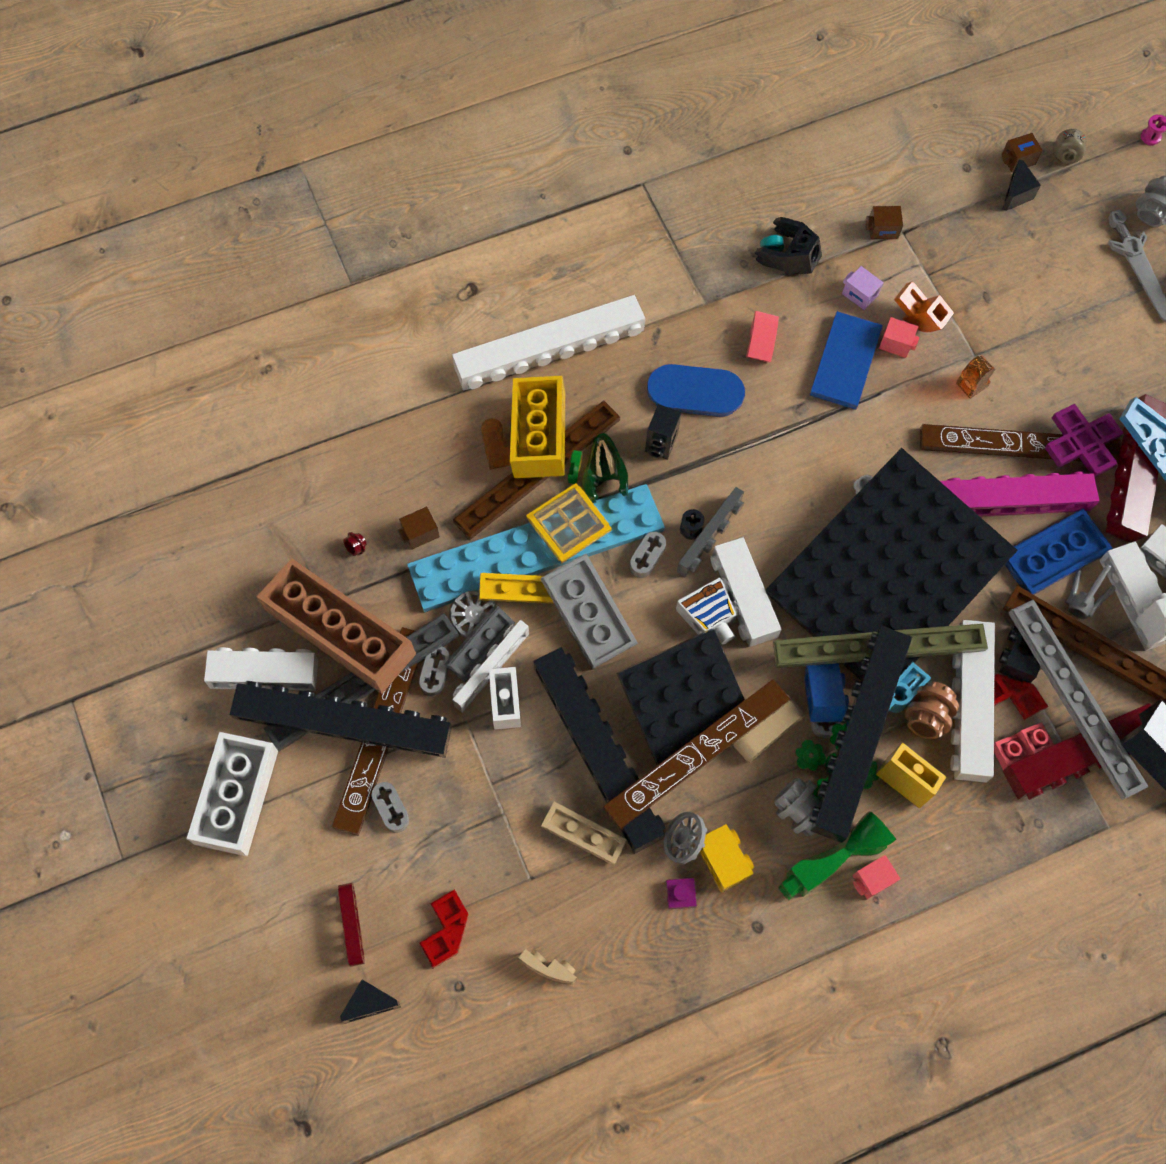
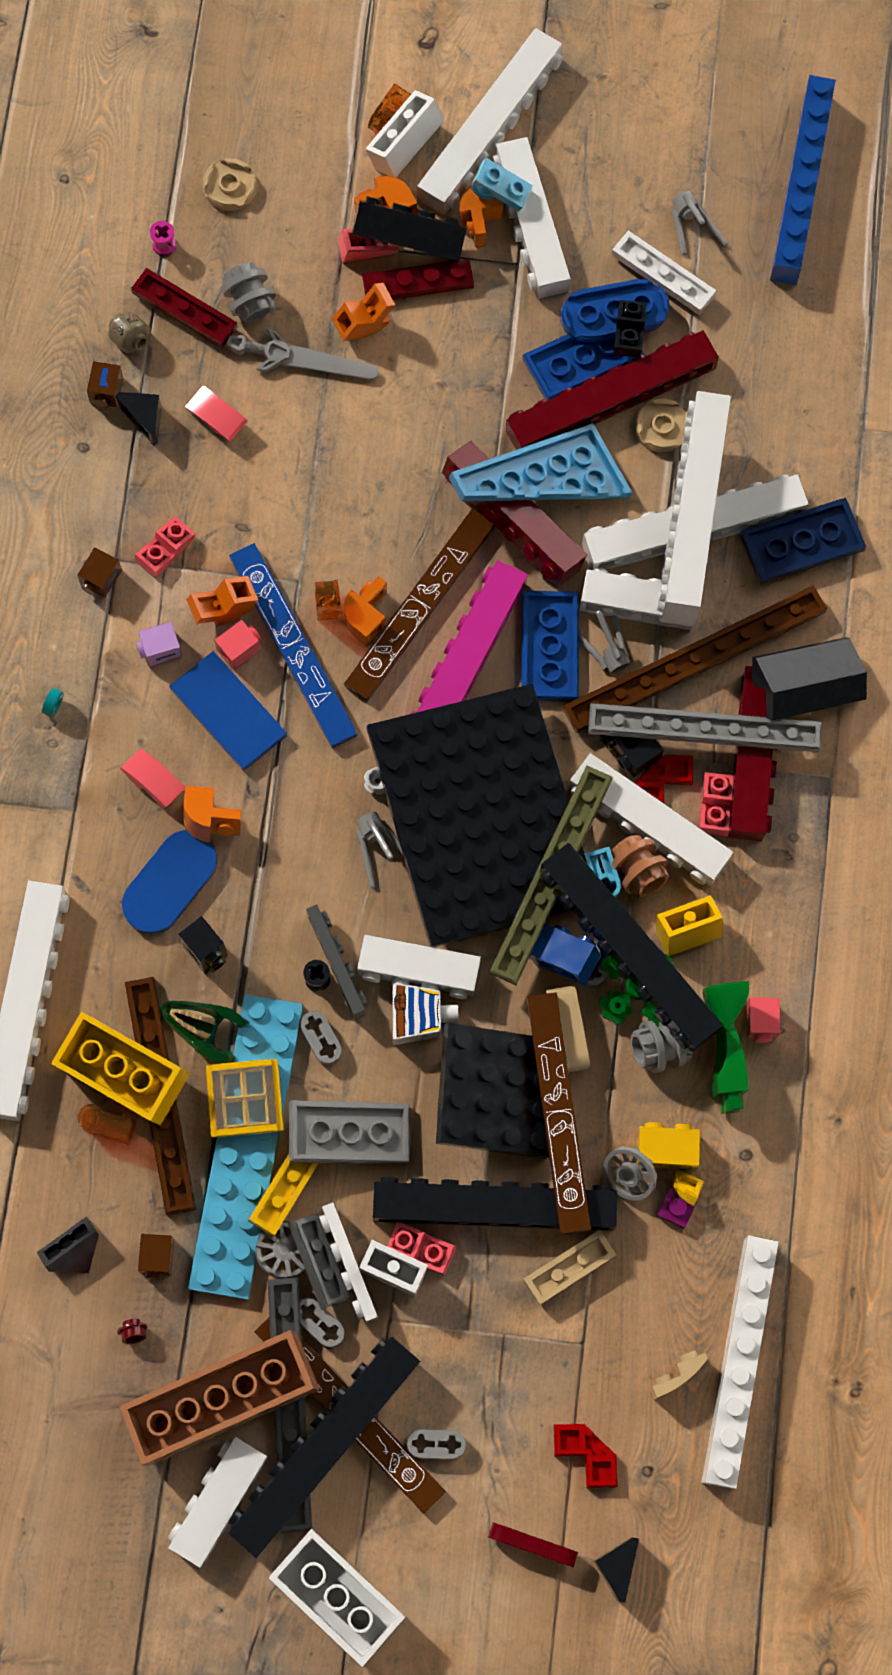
camera: 60 degrees left, 5 degrees up
(390, 471) = (72, 1249): none -> black slope
(533, 713) = (422, 1247): none -> coral slope
(576, 460) = (183, 1056): green tile -> none
(586, 1012) = (740, 1363): none -> white brick
(703, 891) = (687, 1186): none -> yellow tile
(759, 385) = (203, 818): none -> orange brick
(801, 254) = (84, 679): black piece -> none
(825, 503) = (373, 829): none -> light grey plant
(924, 377) = (294, 647): none -> blue tile
(939, 256) = (165, 547): none -> coral slope
(986, 403) = (359, 611): none -> orange brick
(1056, 232) = (216, 413): none -> coral slope
(1084, 440) = (456, 544): magenta plate -> none
(1116, 171) = (184, 307): none -> dark red plate

